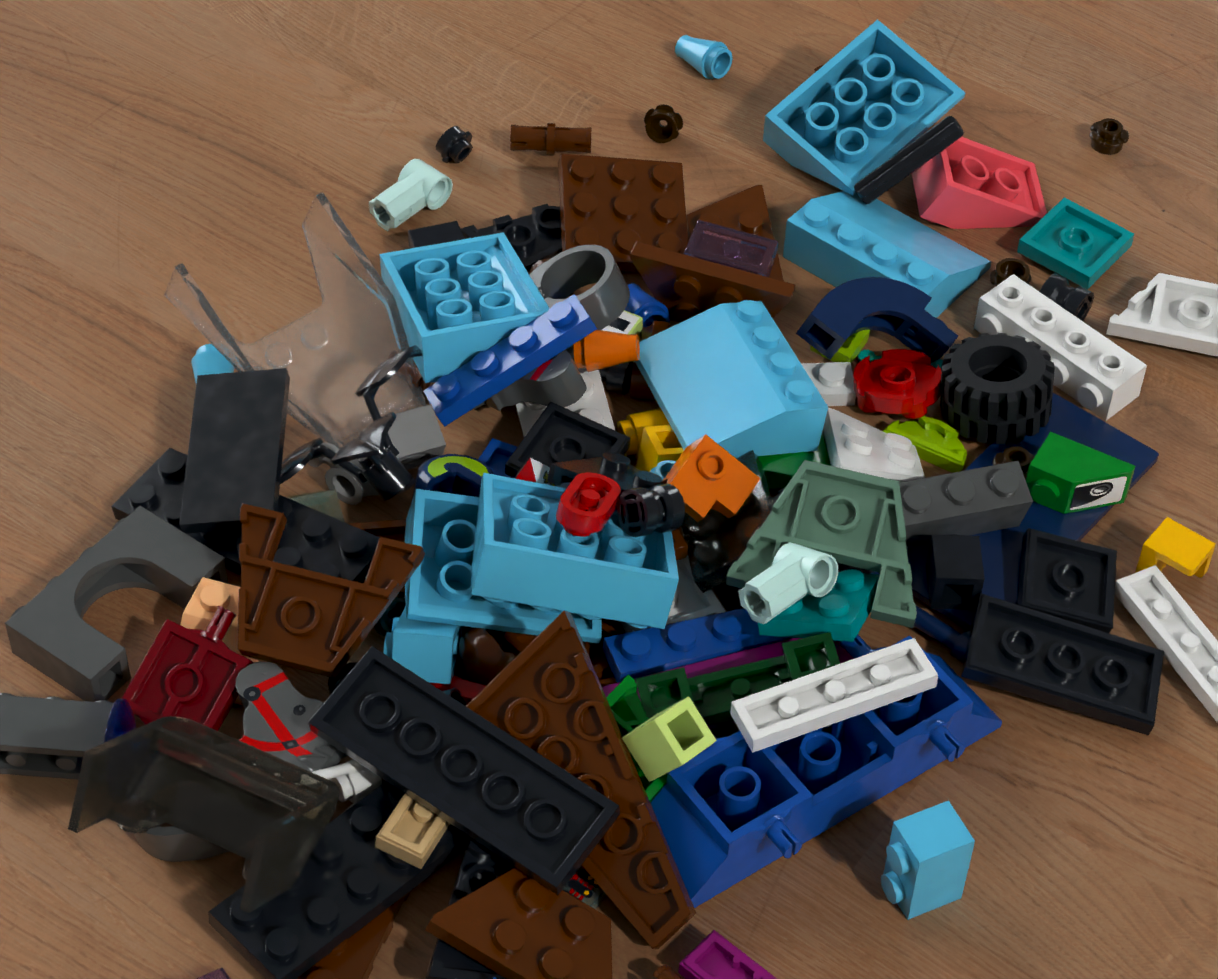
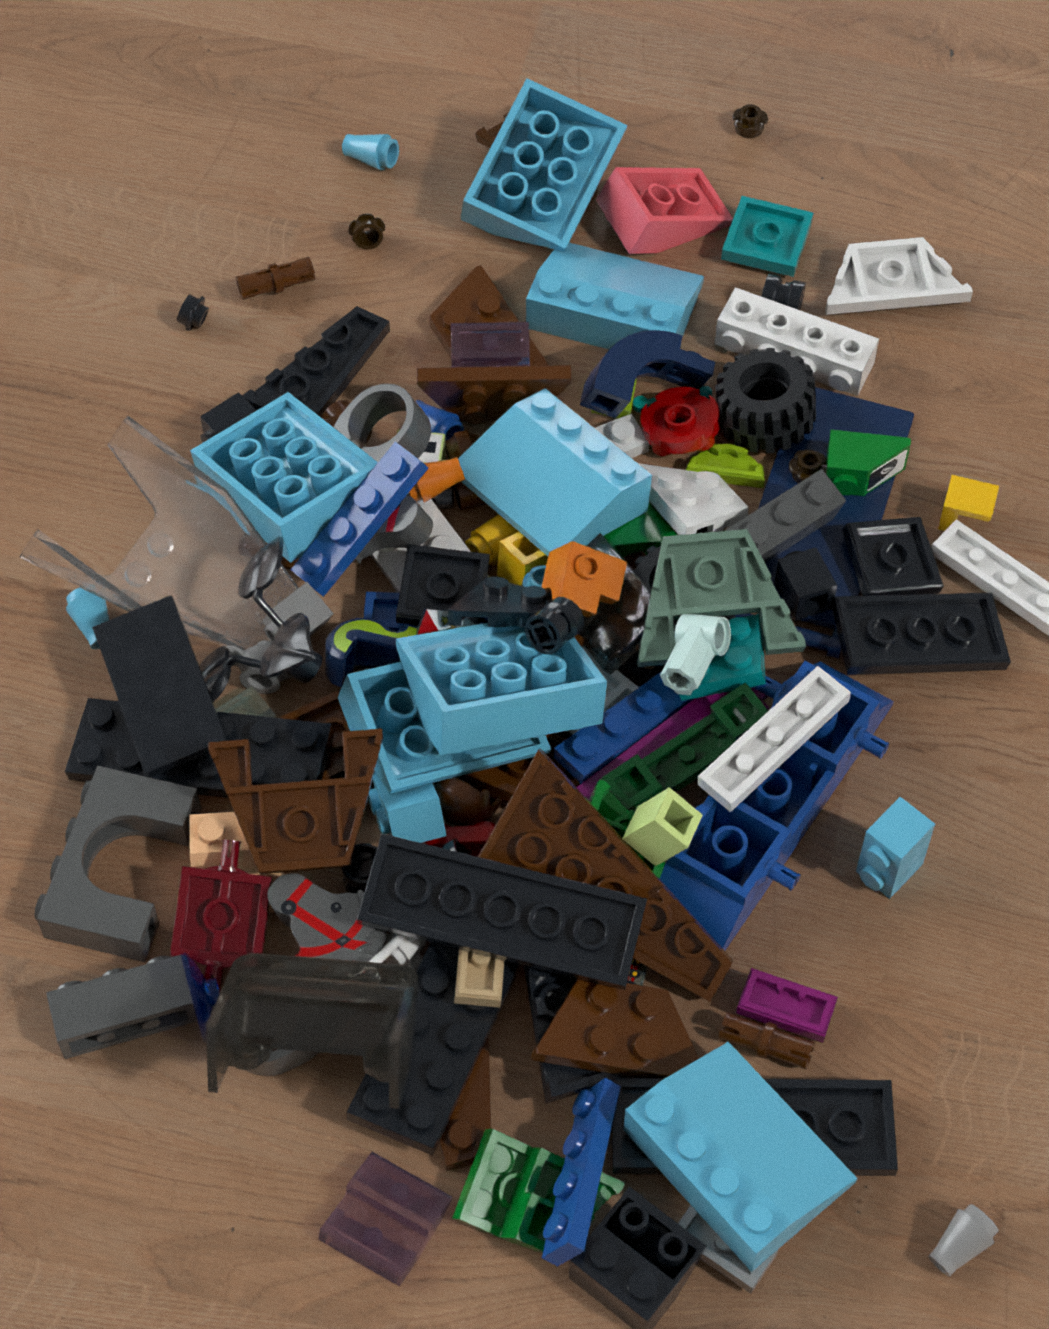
camera: 20 degrees left, 10 degrees up
(416, 187) = (180, 369): light aqua piece -> none
(587, 503) = (502, 638): red plate -> none
(620, 203) = (376, 333): reddish brown plate -> none
(908, 160) = (605, 206): black axle -> none
(1008, 267) = (725, 283): dark brown plate -> none

